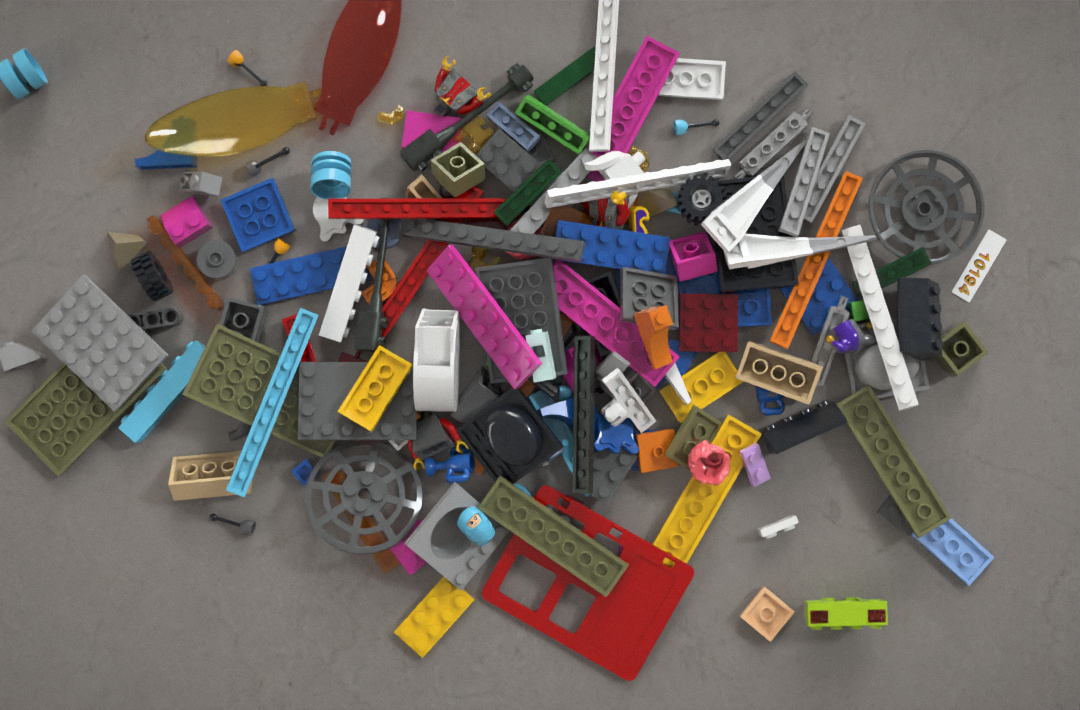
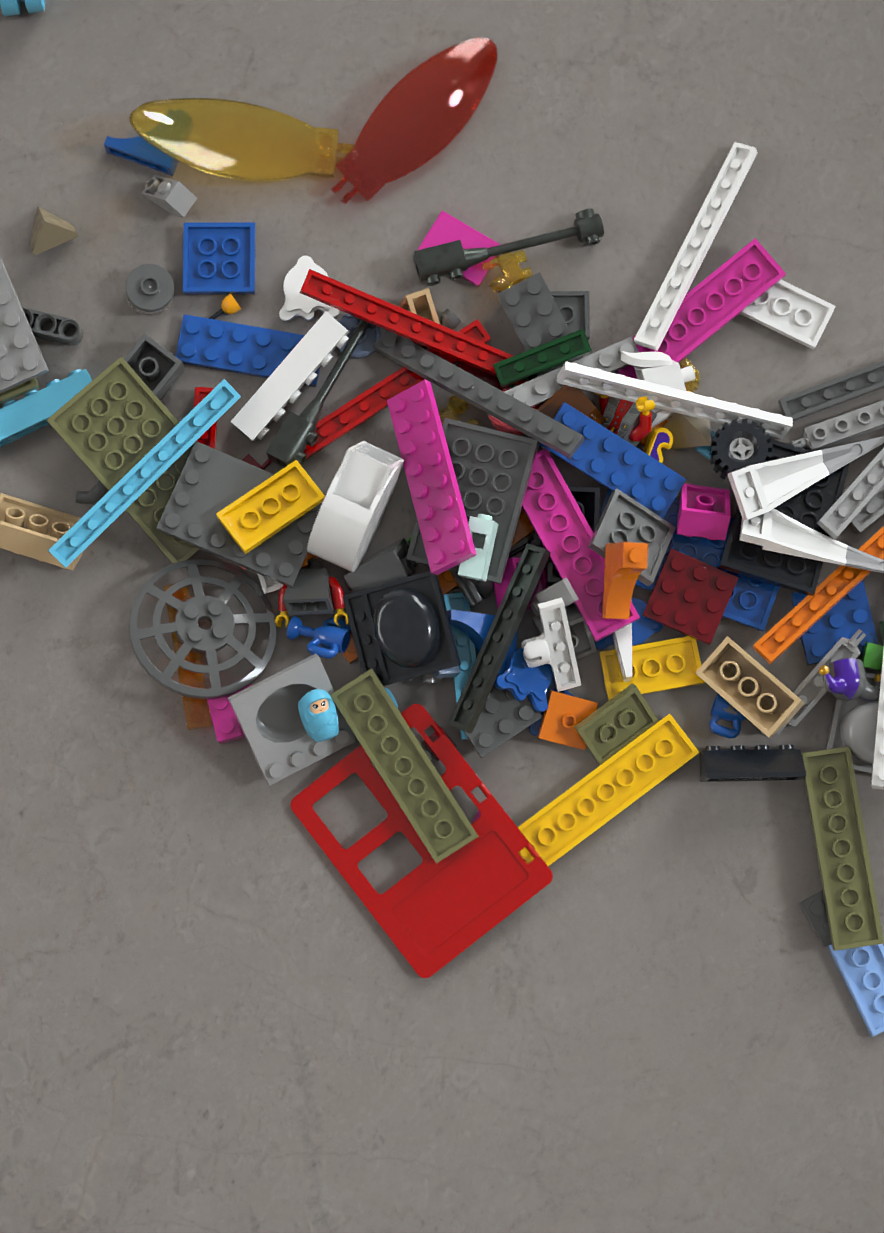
camera: 15 degrees right, 5 degrees down
(151, 276) = (68, 275): black wheel -> none
(185, 222) = (133, 232): dark pink slope -> none
(190, 269) = (109, 269): clear orange plate -> none
(236, 60) = (271, 73): hinge -> none
(247, 526) = (50, 608): hinge -> none
(255, 166) = (239, 201): hinge -> none
(303, 472) = (144, 571): blue plate -> none
(330, 175) = (323, 245): medium azure wheel -> none
(388, 282) = (336, 397): orange plate -> none
(392, 118) = (422, 212): clear yellow arm -> none
(433, 616) = (224, 804): yellow plate -> none
(455, 92) = (506, 212): torso -> none
(458, 169) = (472, 300): olive brick -> none
(513, 127) = (557, 278): sand blue plate -> none
(553, 124) = (604, 294): bright green brick -> none
(566, 78) = (642, 250): dark green tile -> none
(566, 393) = (490, 607): medium azure hinge -> none
(681, 126) = (753, 360): hinge -> none
(709, 463) = (622, 757): coral hair -> none
(754, 464) = (676, 785): lavender plate -> none
(767, 613) = (618, 967): light nougat plate -> none
(771, 529) = (685, 870): white plate -> none
(848, 612) = (712, 1001): lime piece -> none

